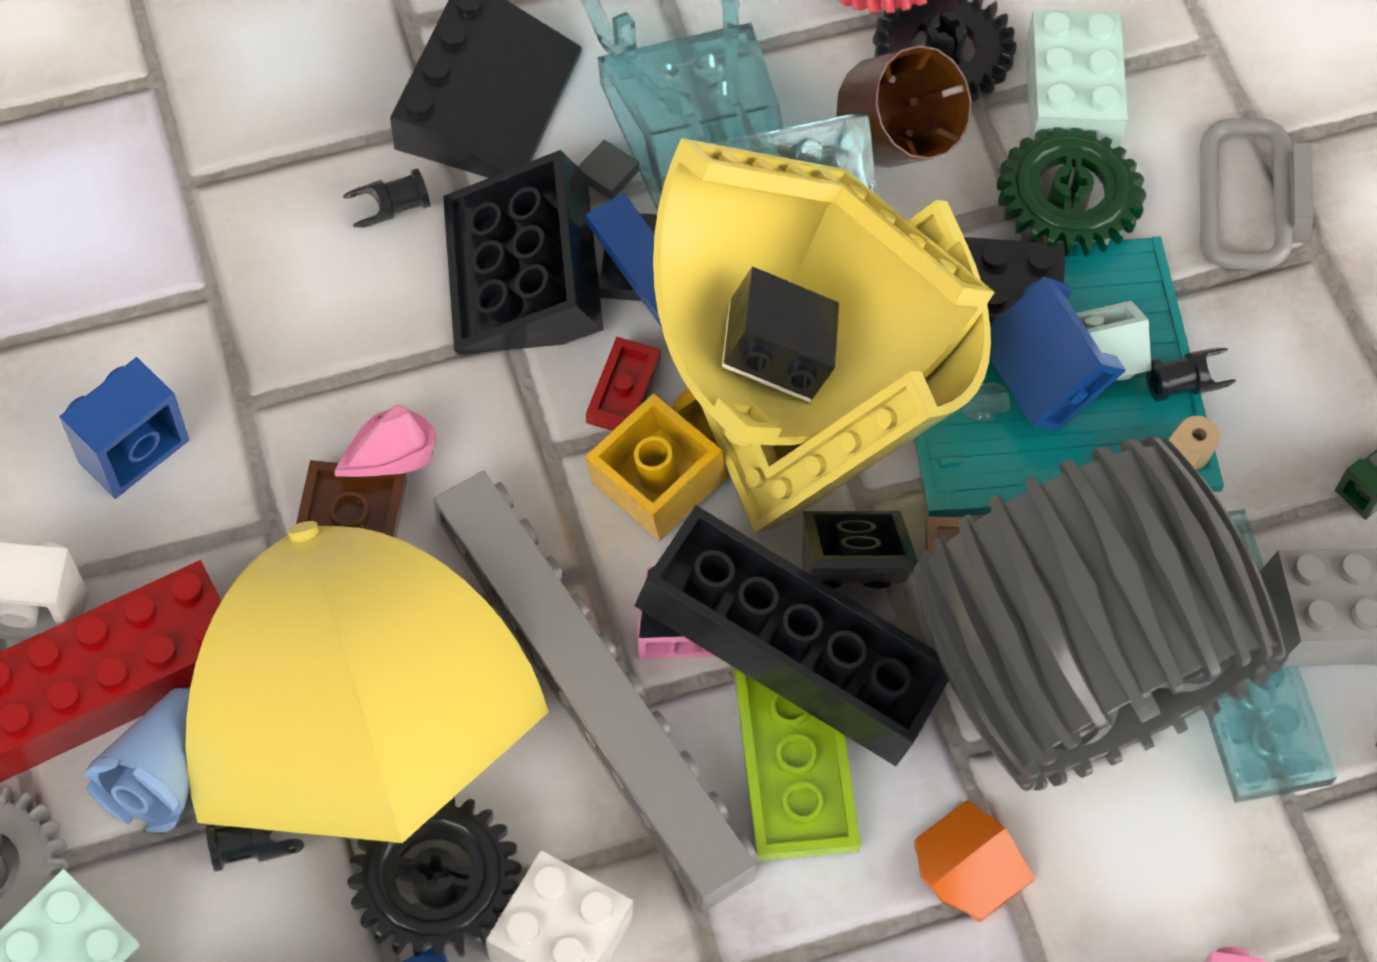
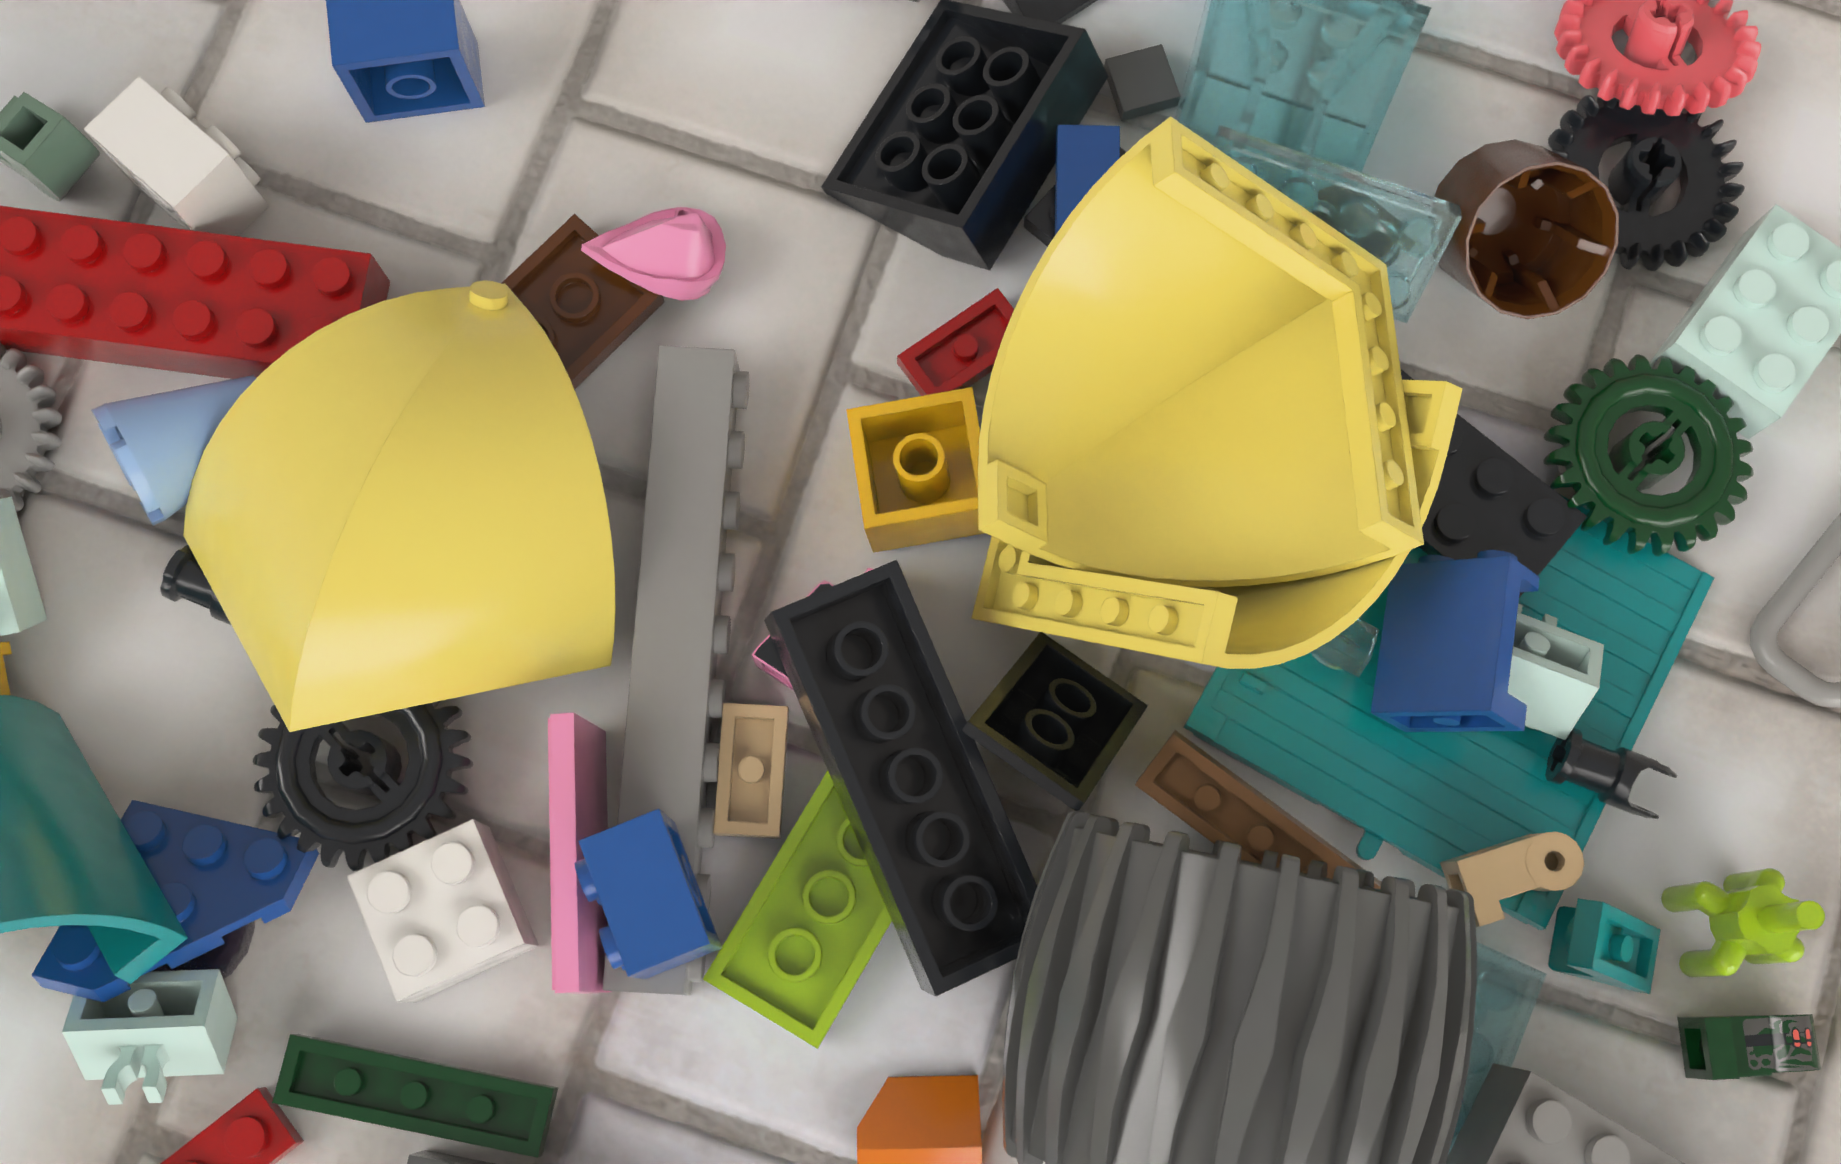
camera: 35 degrees right, 15 degrees up
(625, 828) = (575, 813): none -> bright pink tile
(690, 714) = (751, 770): none -> tan plate
(697, 801) = (647, 896): none -> blue brick
(781, 334) = (1144, 423): black piece -> none
(1262, 474) = (1604, 946): none -> teal slope
(1330, 398) = (1747, 920): none -> lime plant

